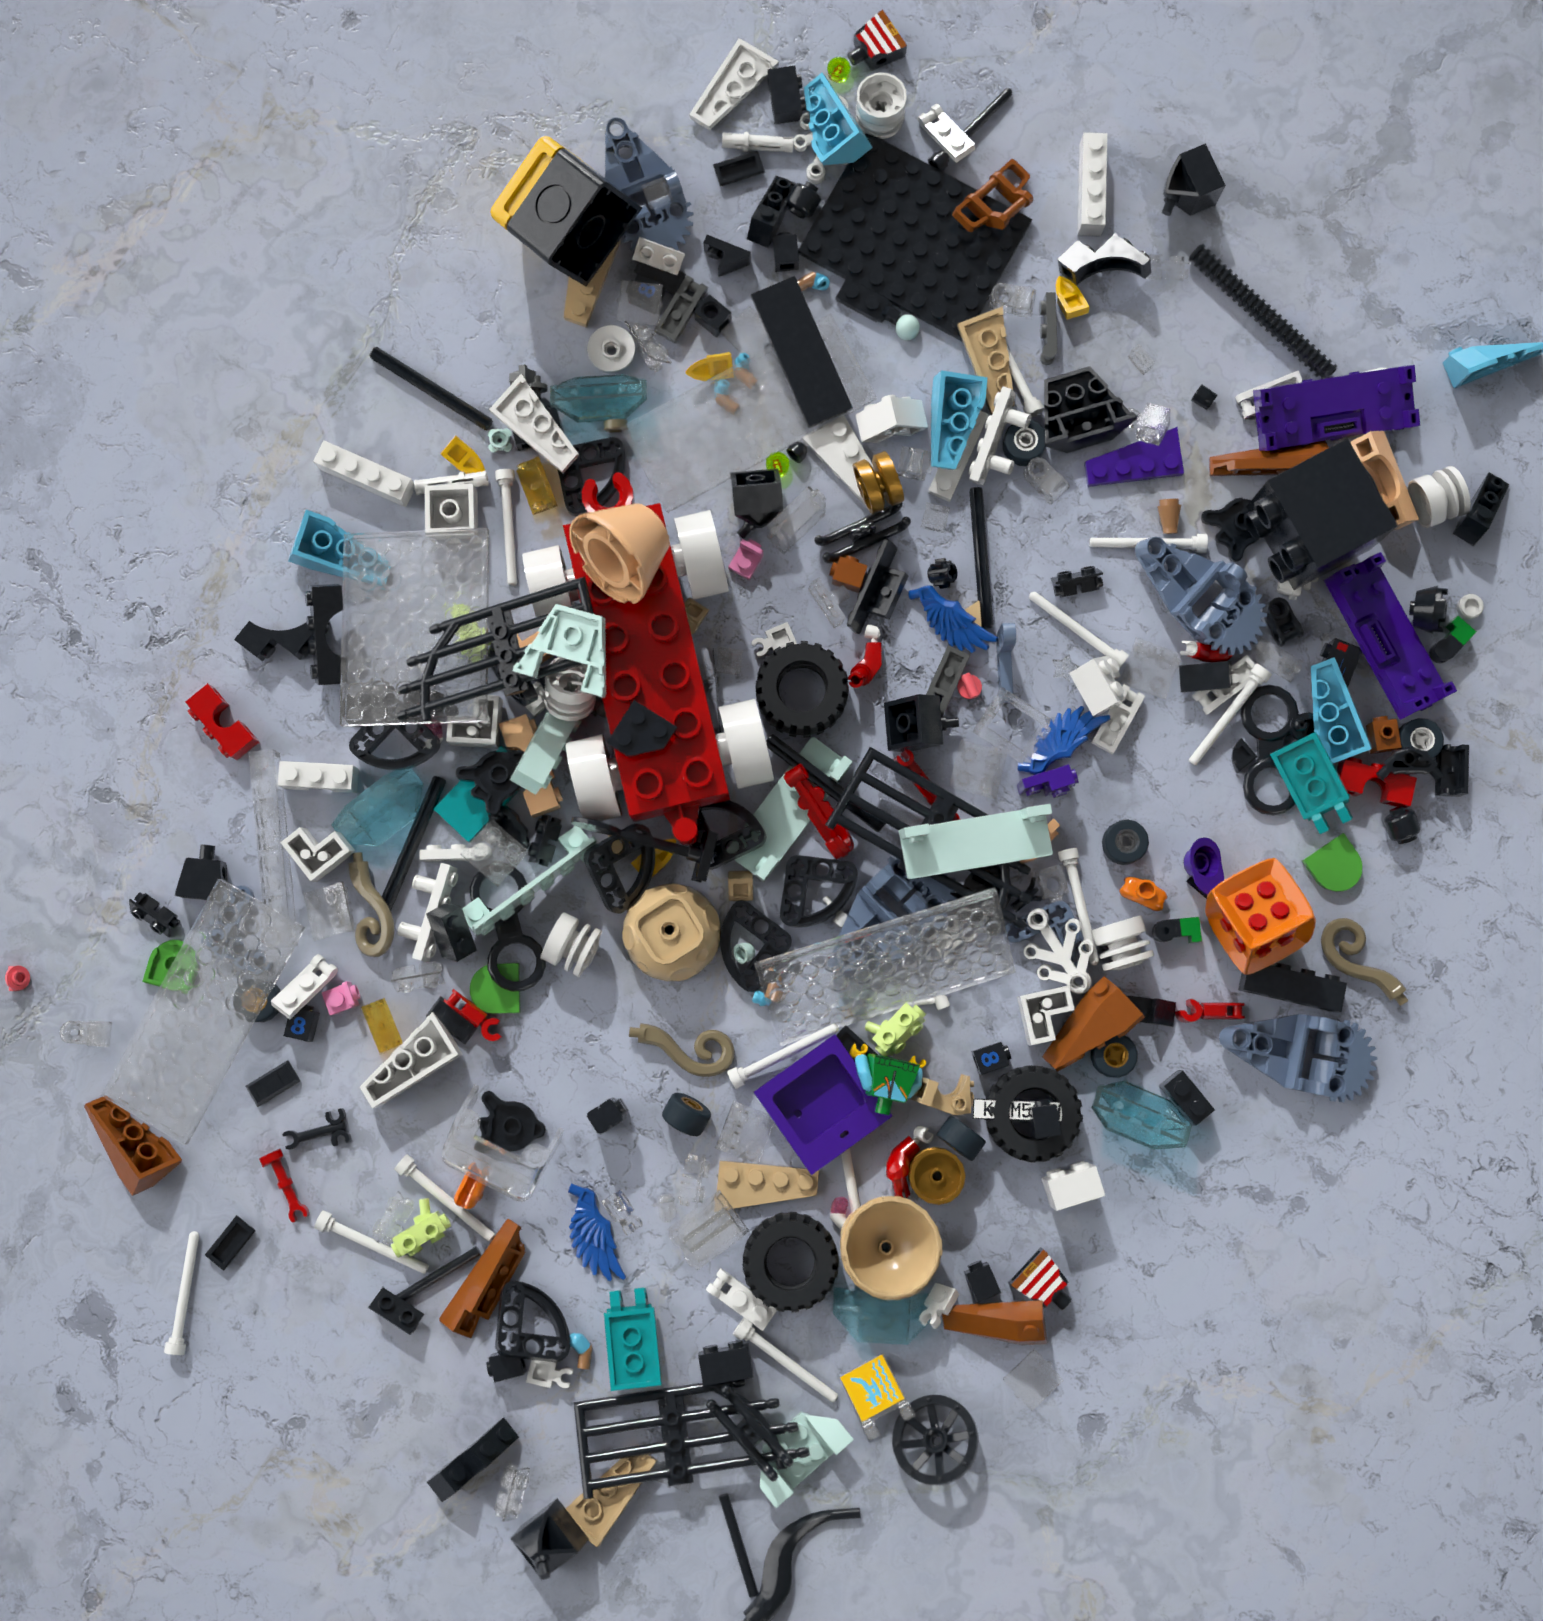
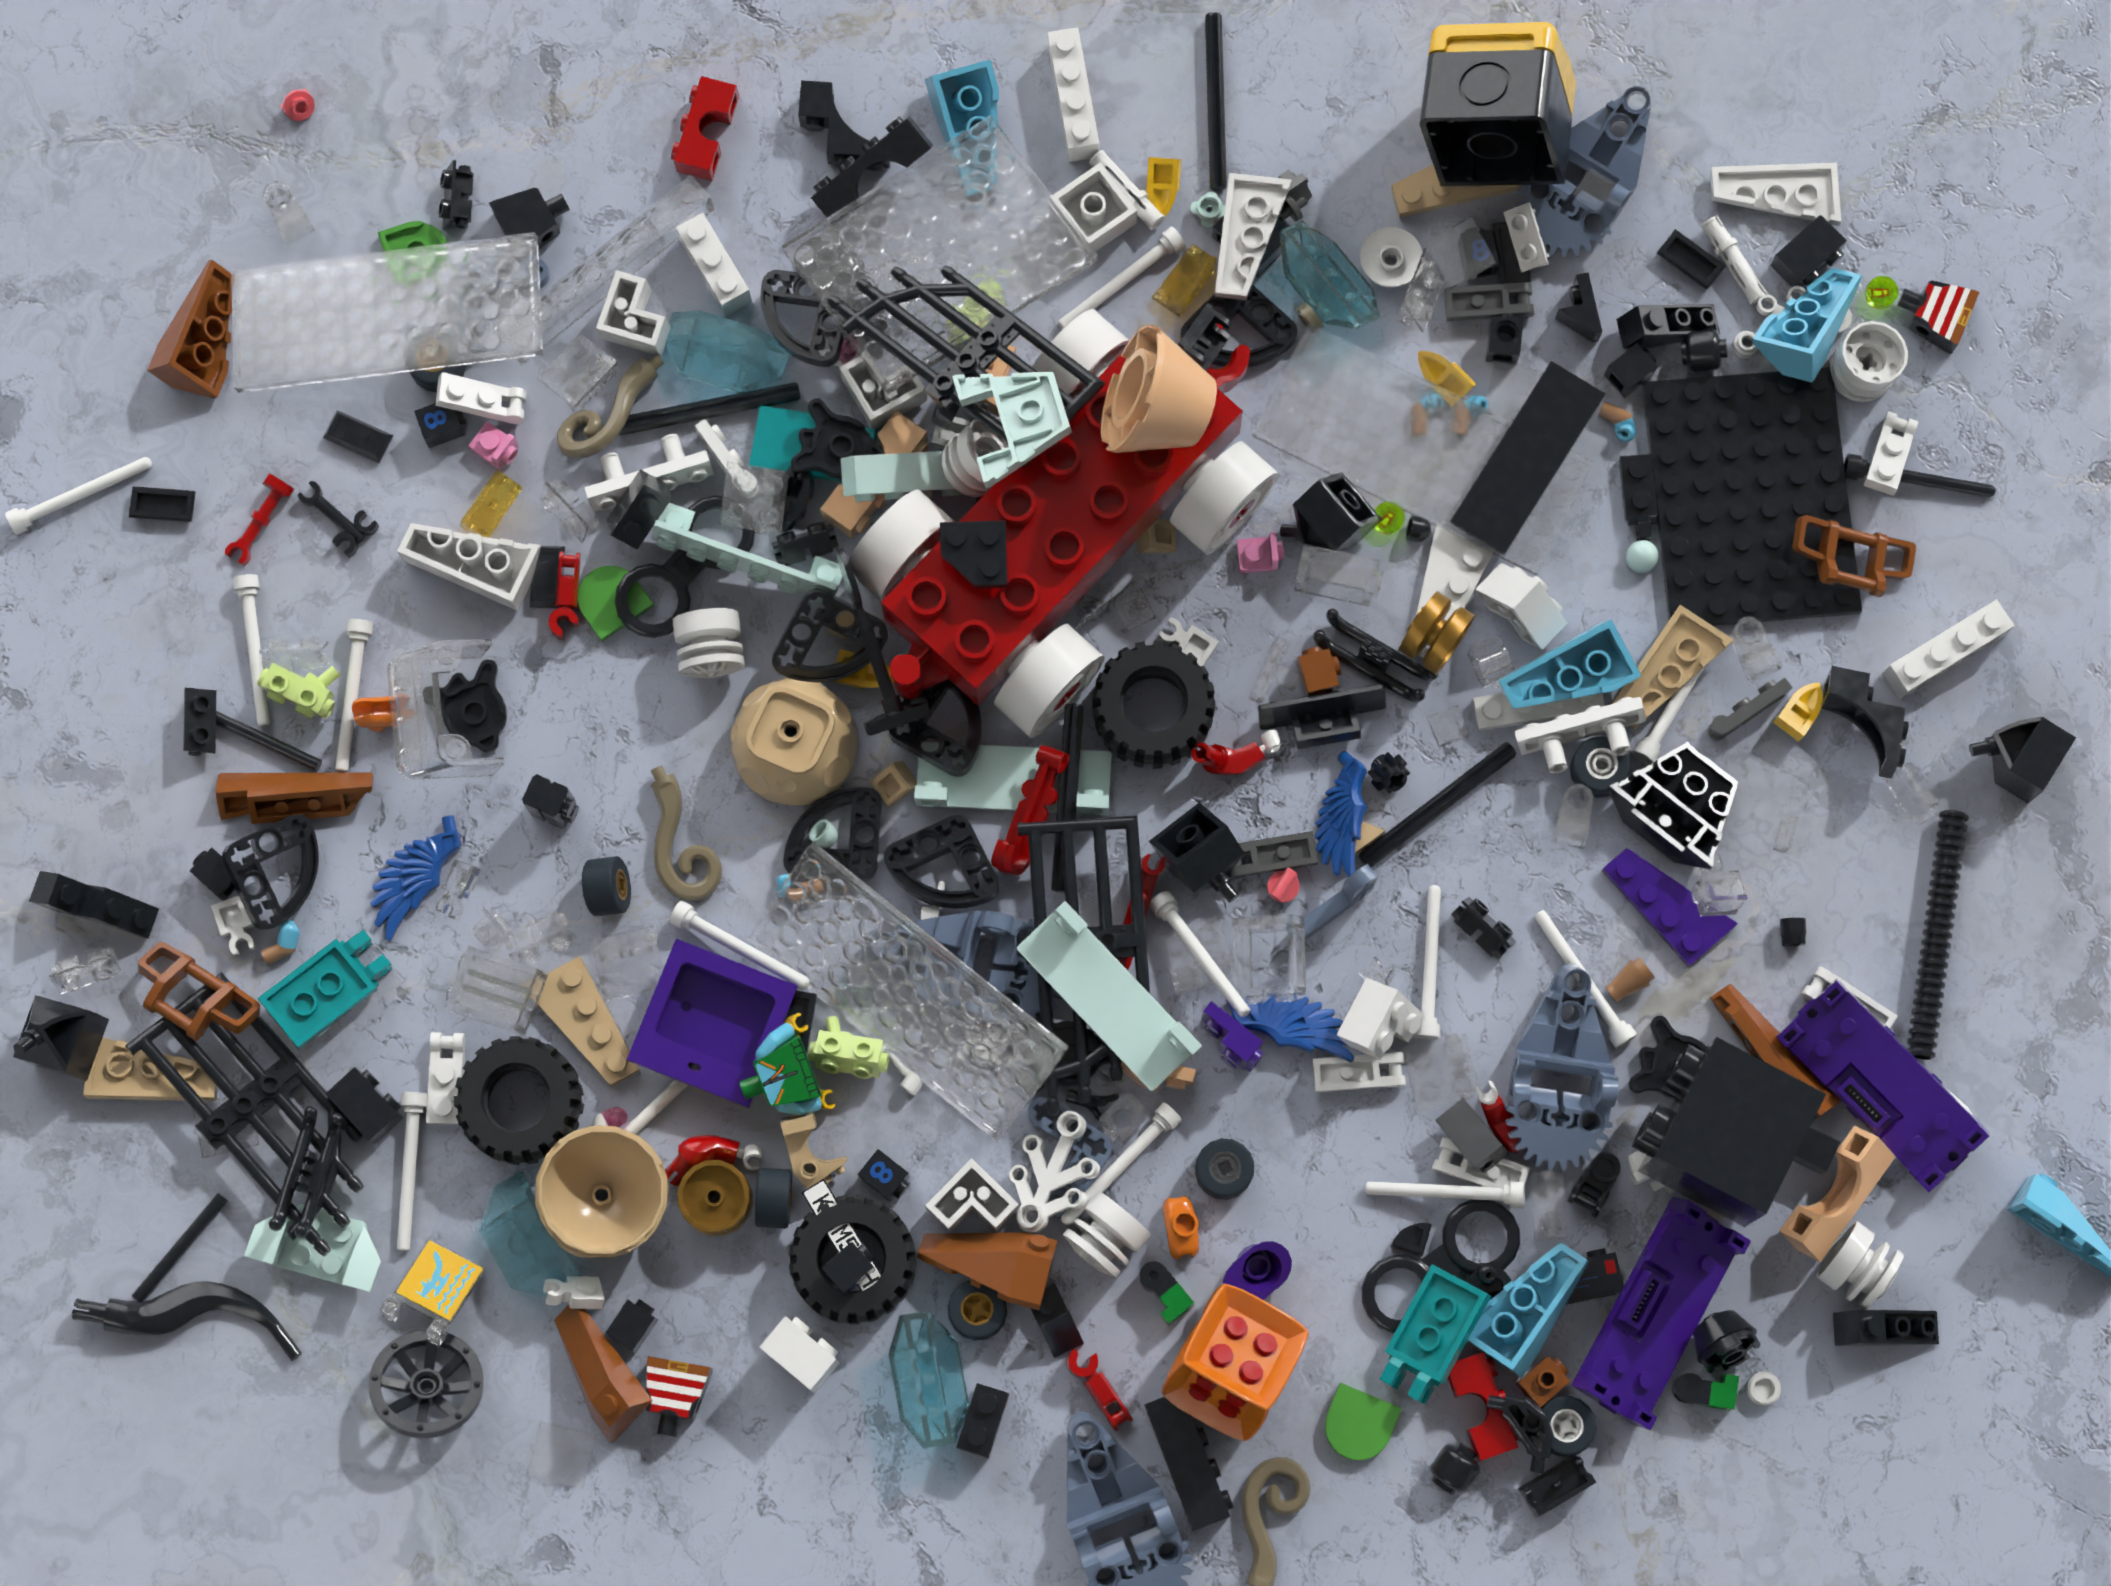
camera: 55 degrees right, 5 degrees down
(596, 493) = (1205, 338): none -> black hinge
(598, 1429) = (209, 1010): none -> dark orange bar
(936, 768) = (1165, 907): none -> white piece

